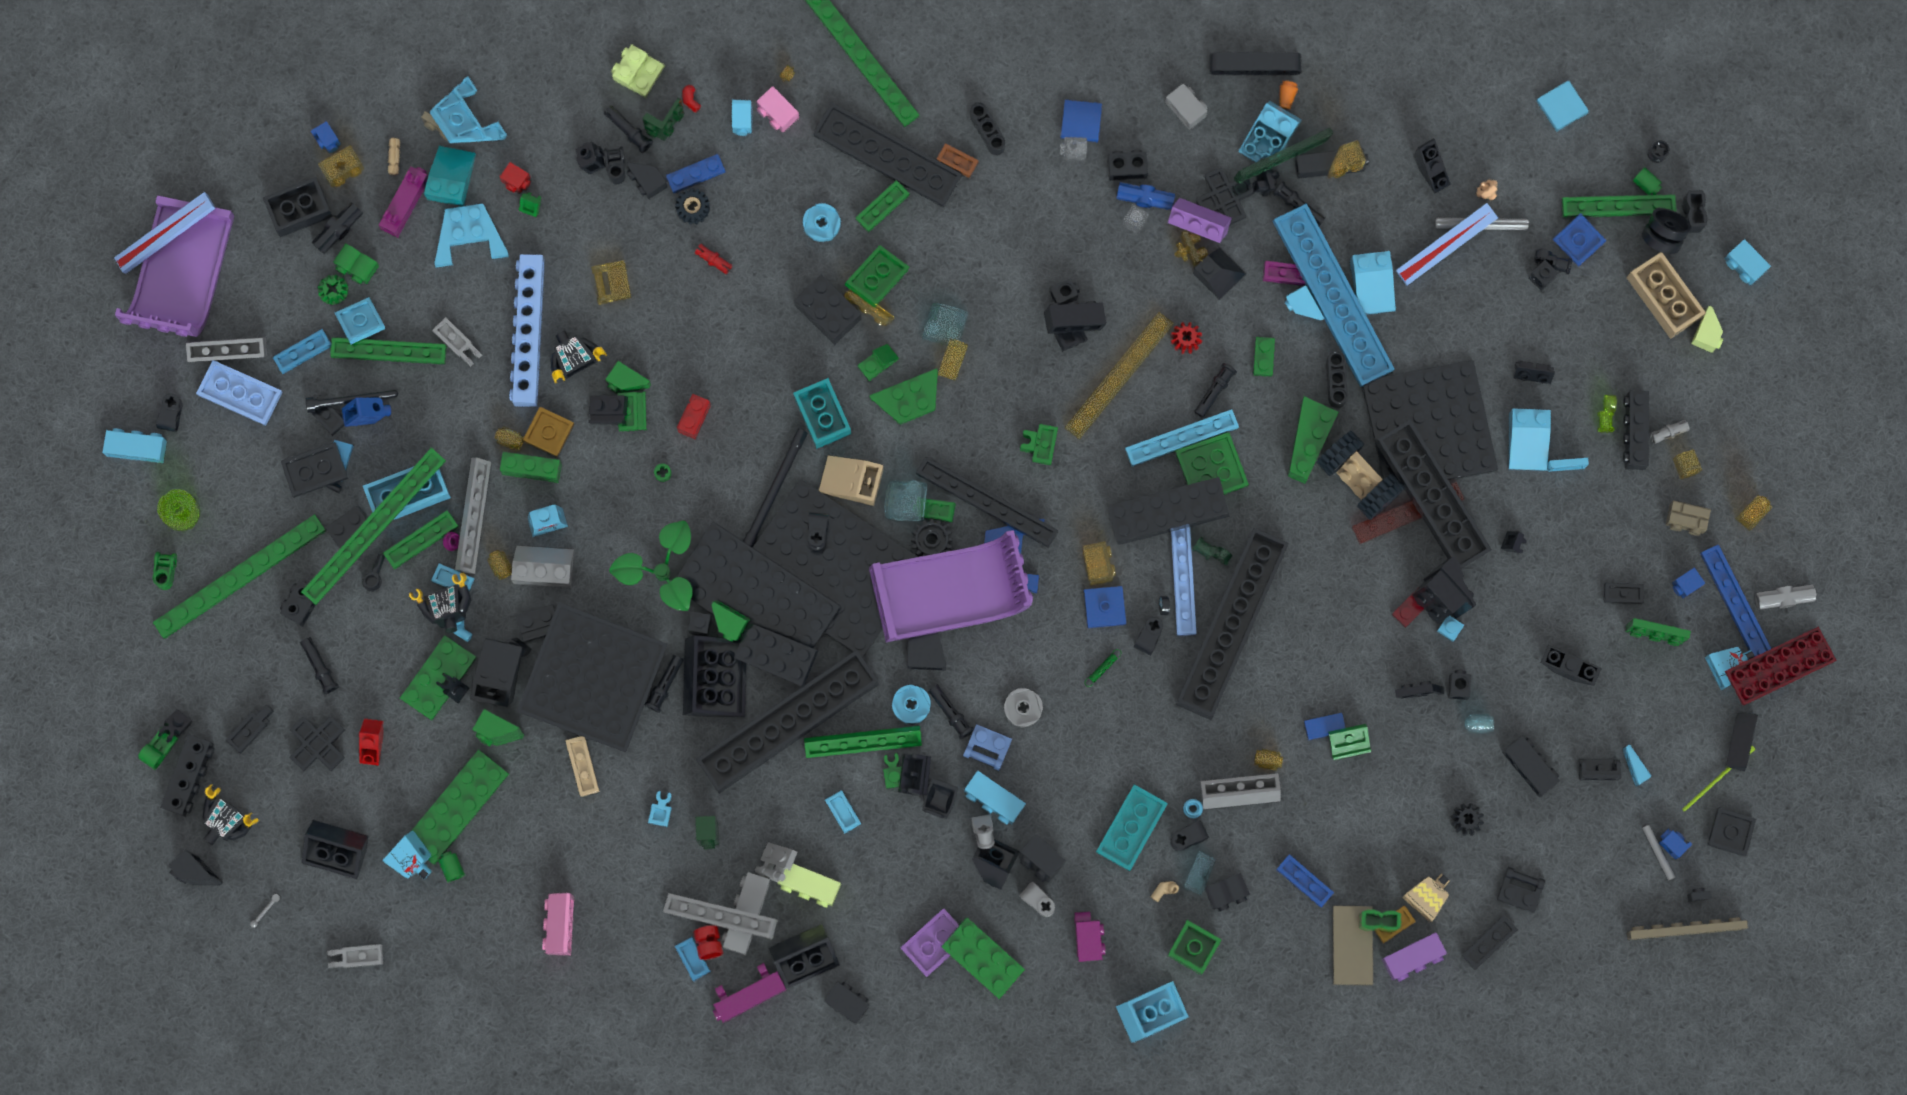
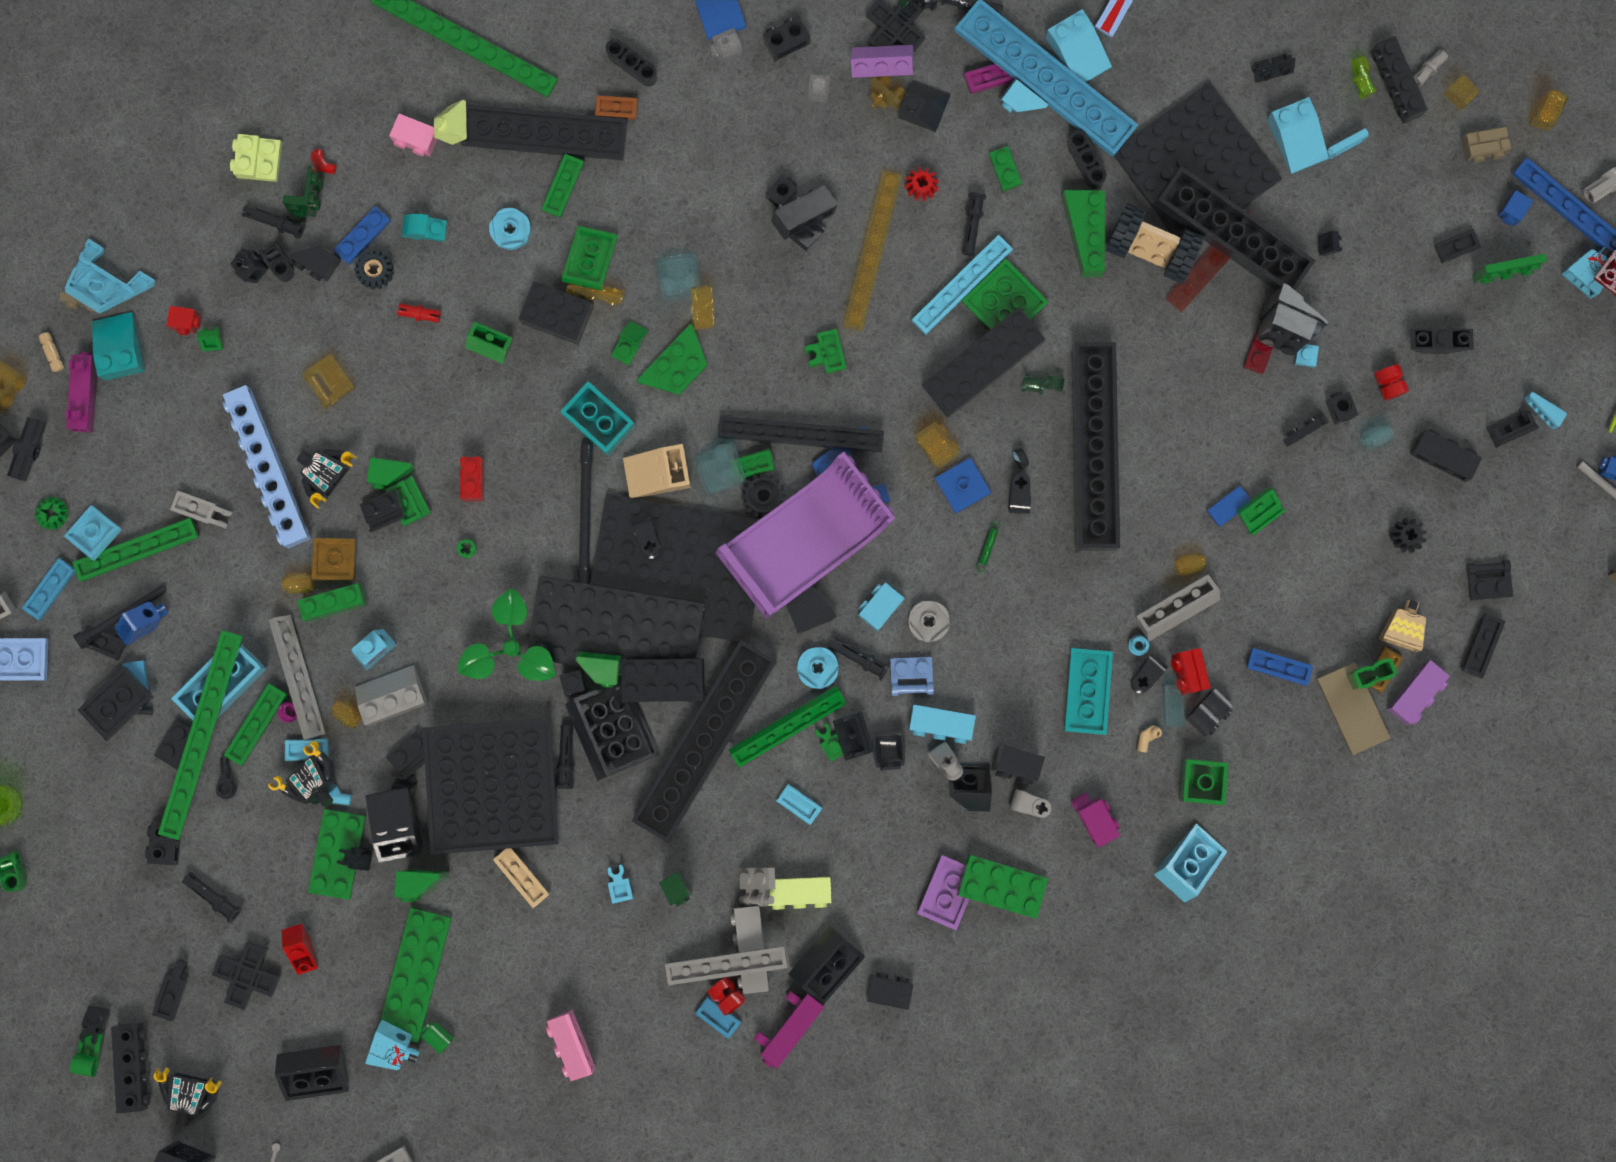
camera: 25 degrees left, 5 degrees up
(239, 576) = (90, 844): green plate -> none
(356, 264) = (62, 477): green brick -> none
(467, 226) = (156, 390): medium azure wing -> none
(742, 117) = (382, 157): medium azure slope -> none
(749, 189) = (423, 227): none -> teal brick
(760, 309) = (488, 342): none -> green brick
(787, 73) = (407, 95): clear yellow plate -> none
(813, 113) = (451, 123): none -> yellowish green slope
(988, 676) = (881, 606): none -> medium azure brick
(1145, 196) = (817, 61): blue piece -> none
(1183, 582) = (1028, 426): light blue tile -> none
(1226, 849) = (1190, 671): none -> red brick
(1512, 683) = (1391, 381): none -> red wheel

